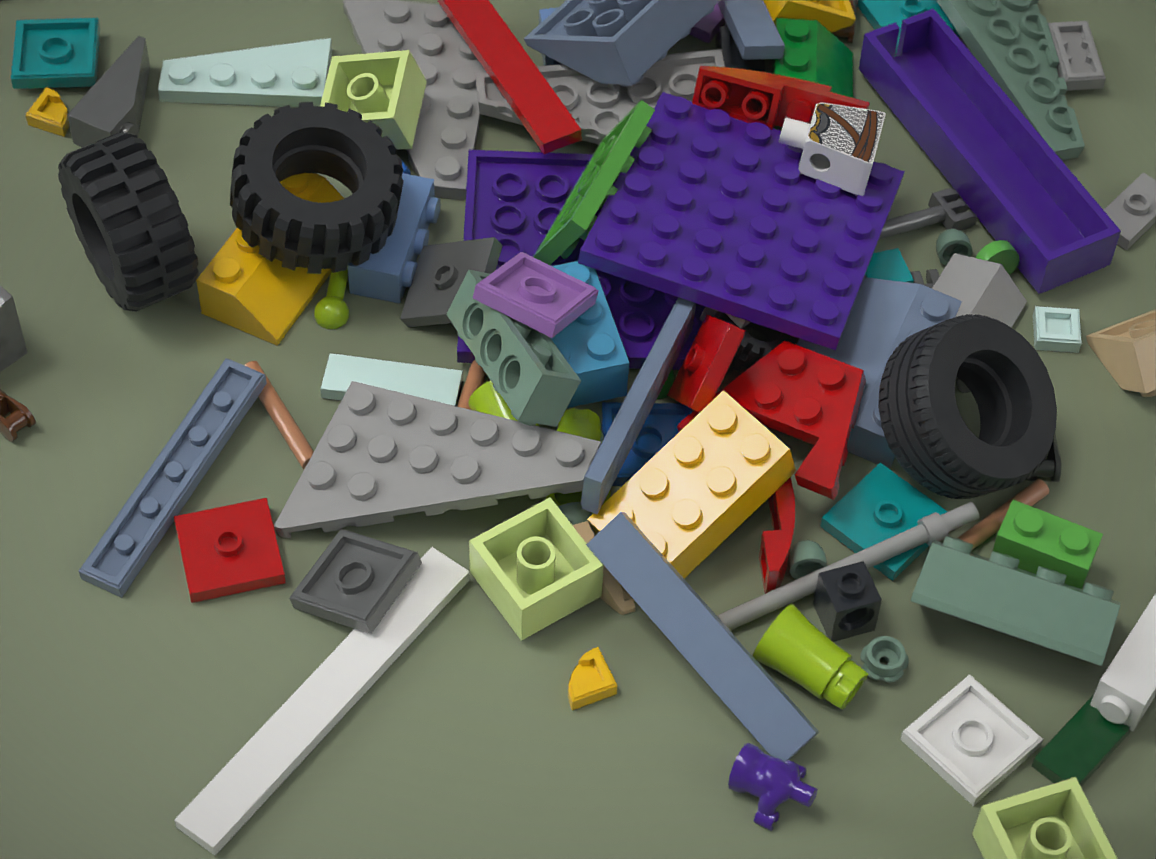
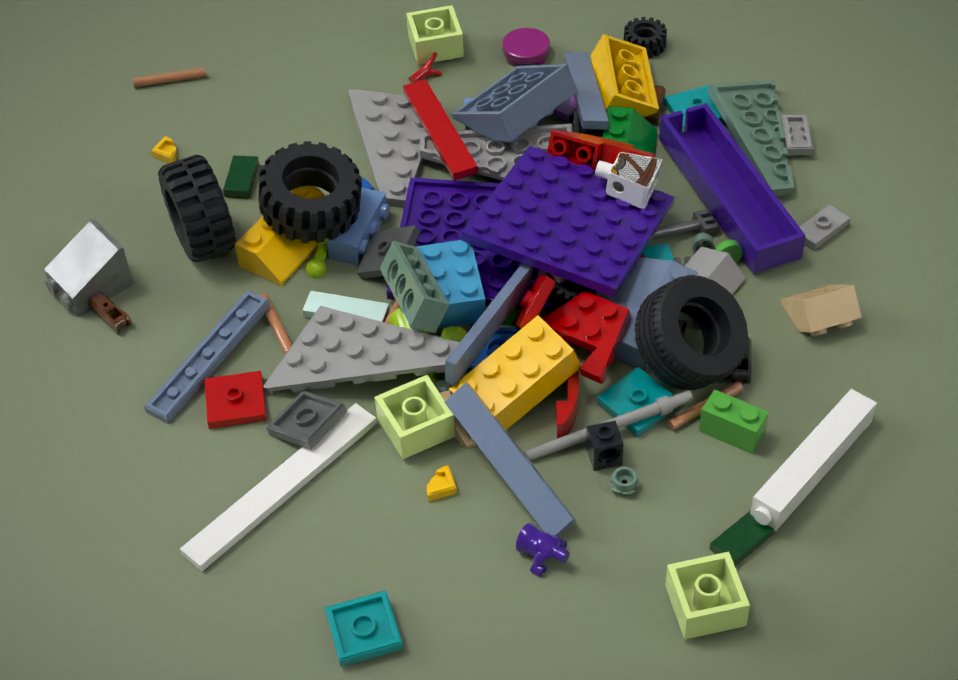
camera: 10 degrees right, 5 degrees down
(55, 53) = (173, 117): teal plate -> none
(114, 100) = (206, 139): dark grey slope -> none
(185, 153) = (241, 176): none -> dark green tile
(250, 76) = (285, 131): light aqua wing -> none
(382, 89) = (361, 140): yellowish green brick -> none
(536, 294) = (430, 255): medium lavender tile -> none
(596, 184) = (483, 194): bright green plate -> none
(806, 558) = (583, 419): sand green hinge -> none
(809, 658) = (576, 476): lime plant -> none
(971, 739) = (673, 530): white tile -> none
(1016, 600) = (708, 448): sand green slope -> none
(1056, 329) = (762, 294): light aqua tile -> none

